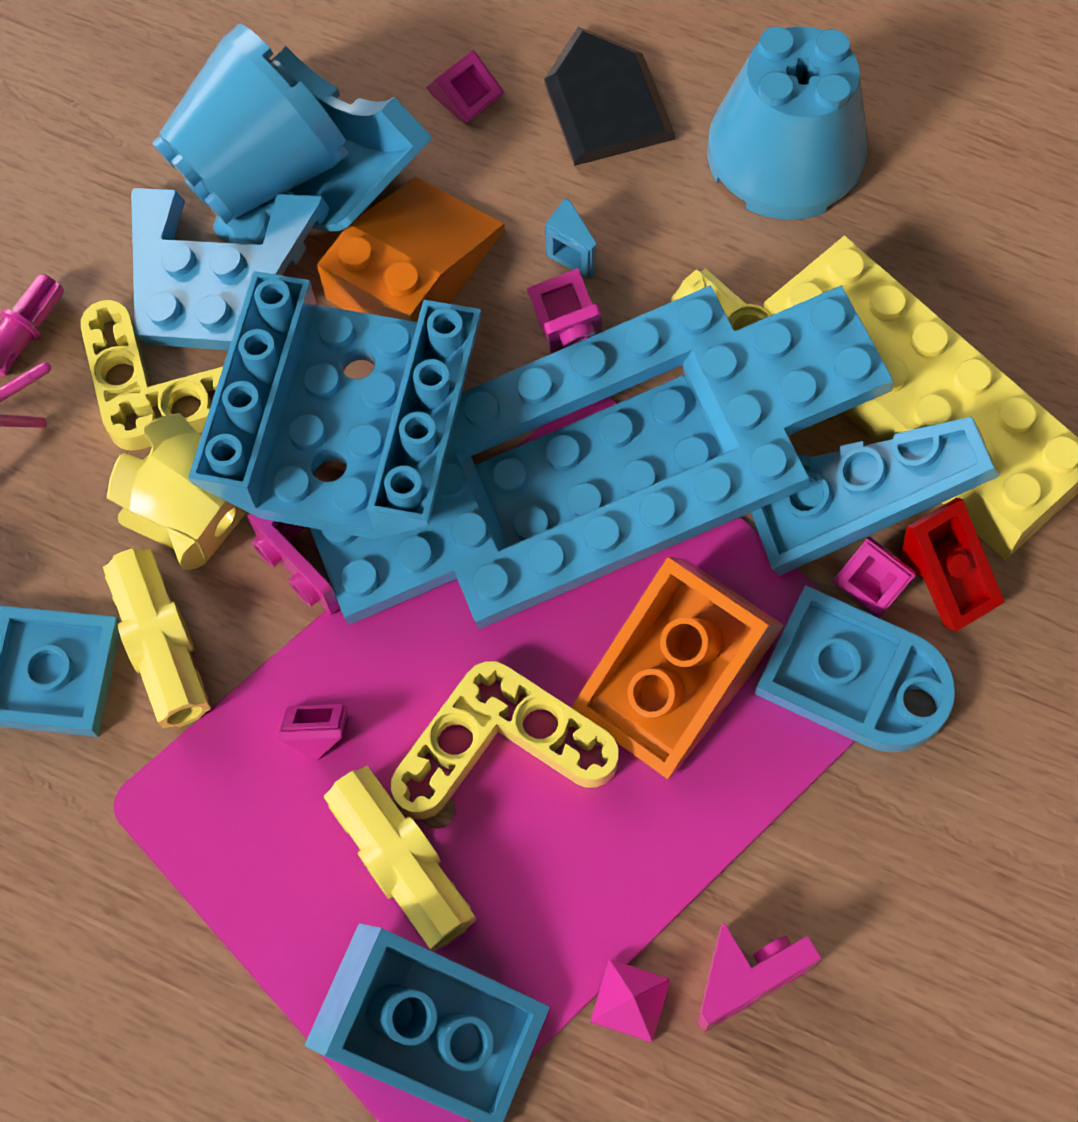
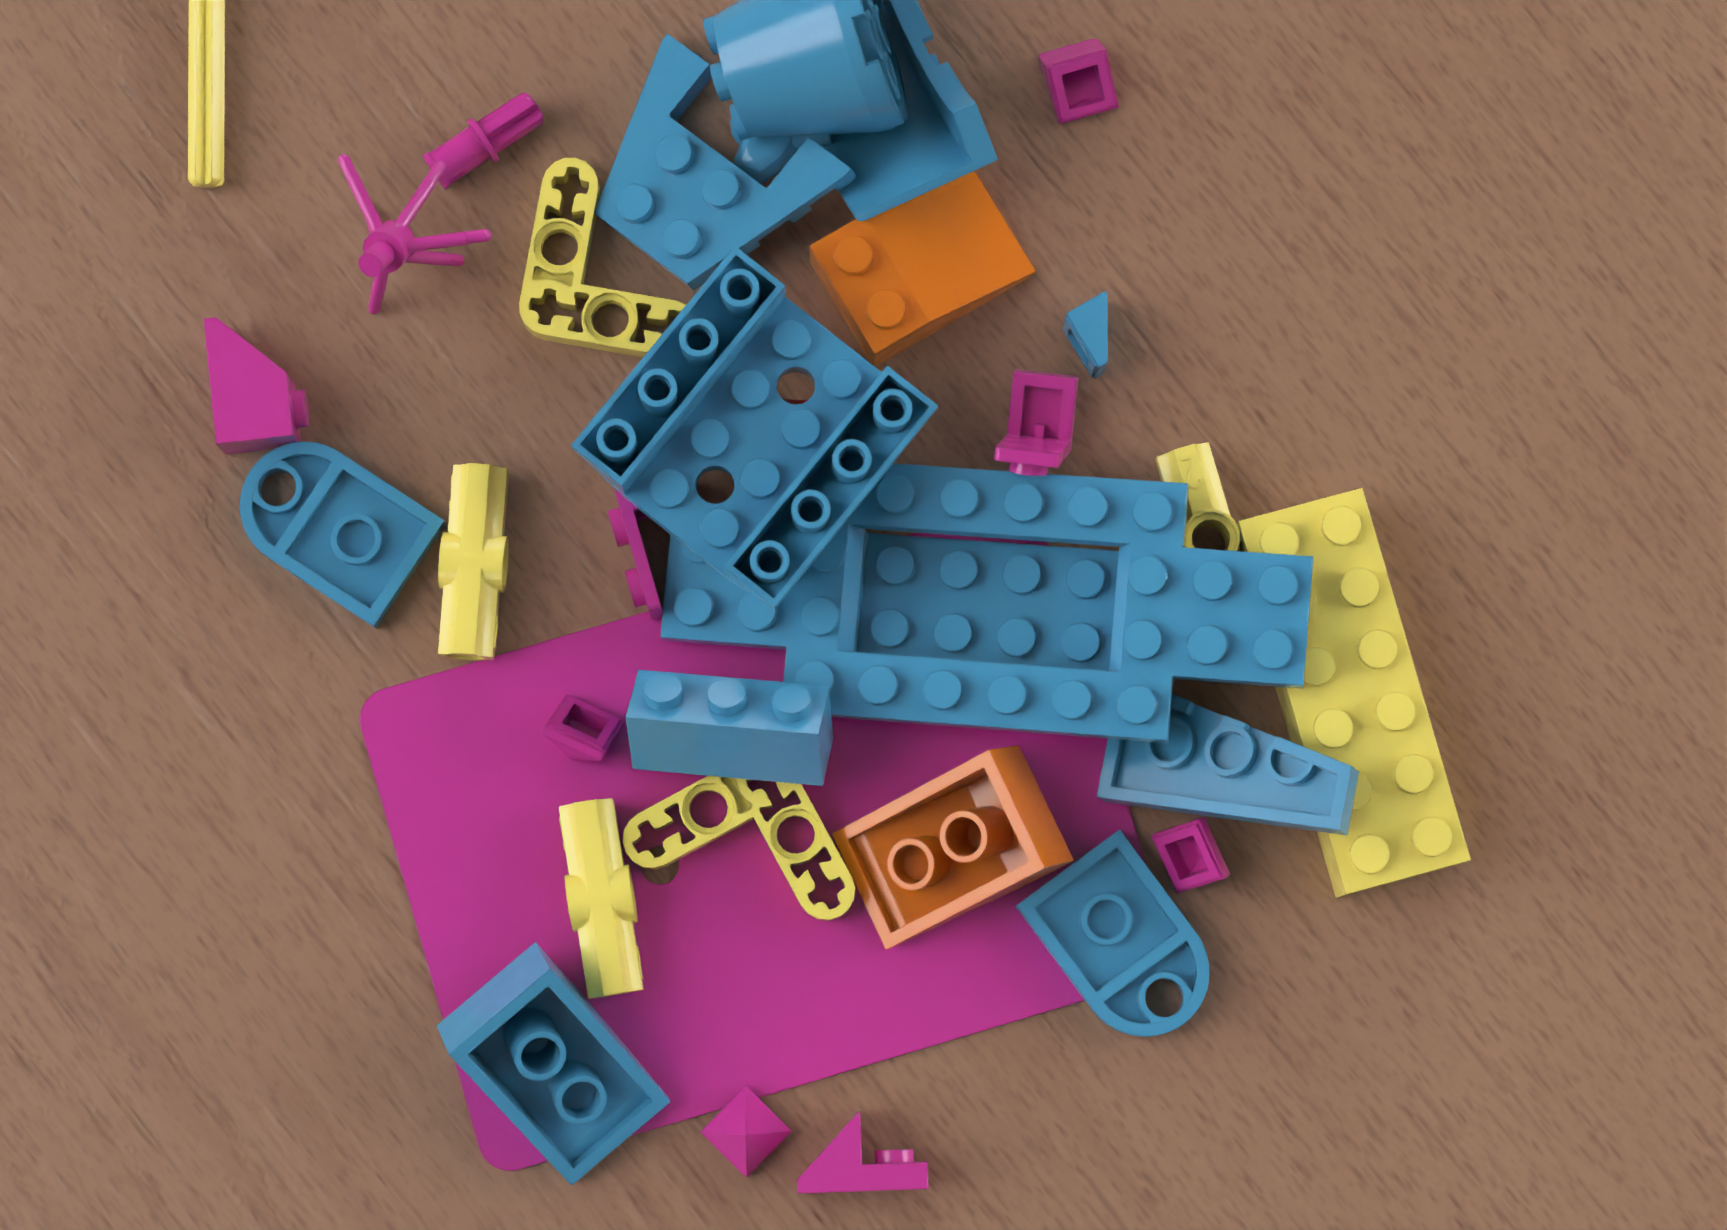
camera: 20 degrees right, 15 degrees up
(163, 501) = (546, 421): light yellow piece -> none
(438, 653) = (730, 727): none -> dark azure brick
(605, 99) = (1222, 169): black tile -> none
(792, 125) = (1362, 356): dark azure cone -> none
(953, 564) = (1268, 887): red slope -> none

